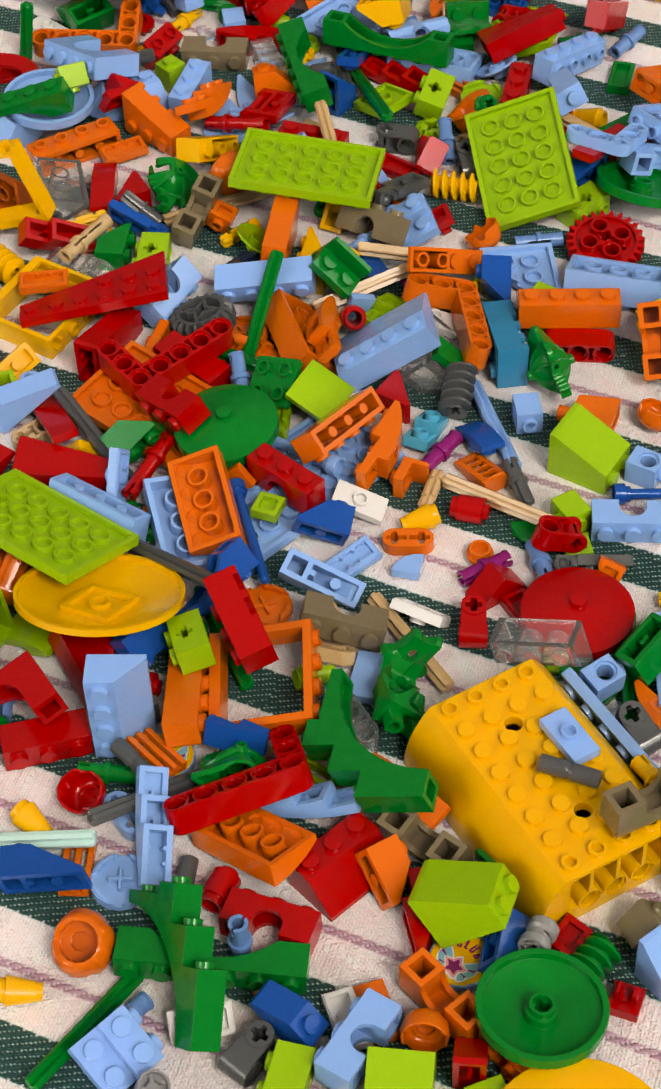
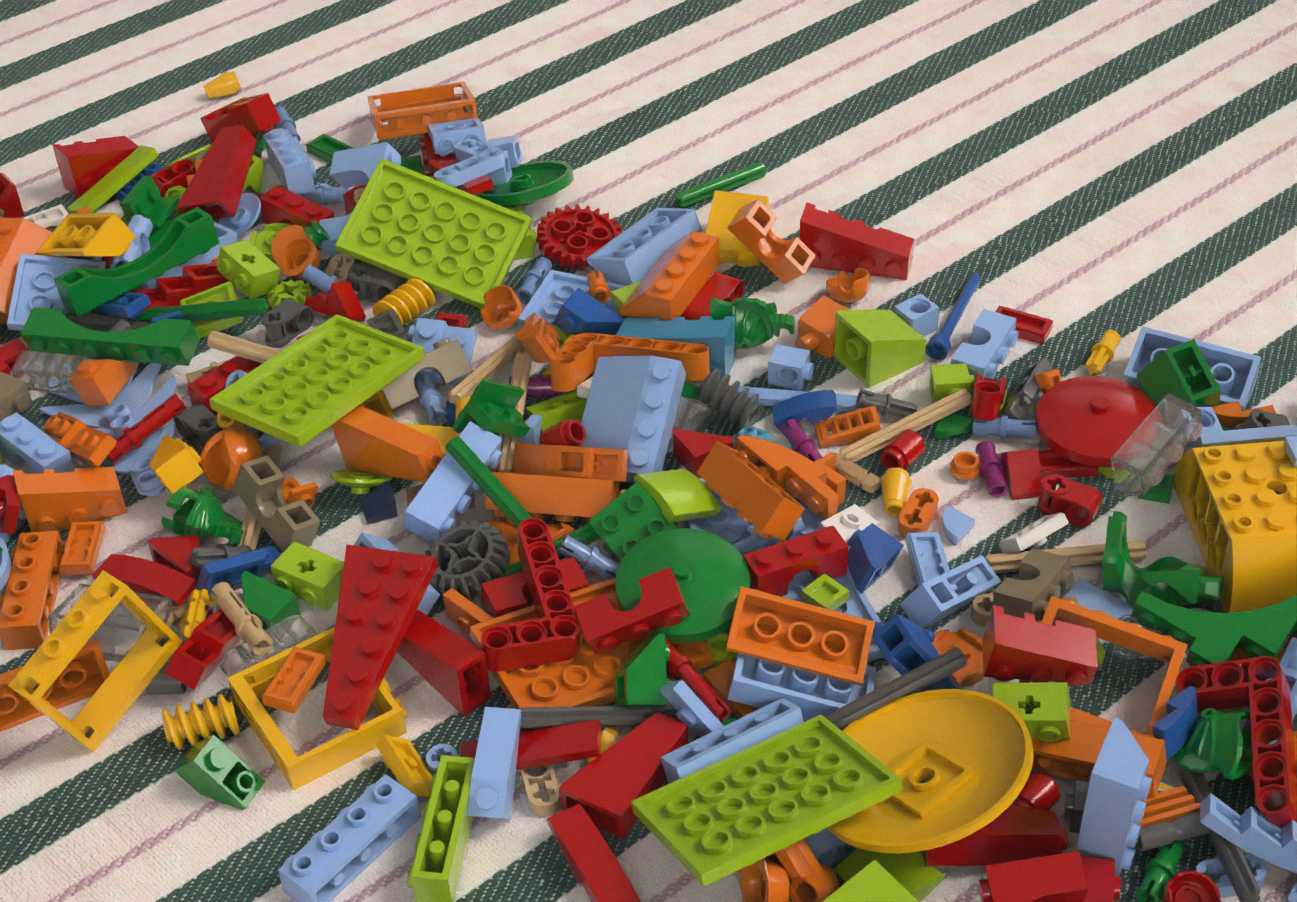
camera: 65 degrees left, 5 degrees down
(227, 240) = (326, 493): yellow axle -> none
(270, 104) = (151, 383): red plate -> none
(534, 273) = (598, 287): none -> orange pin

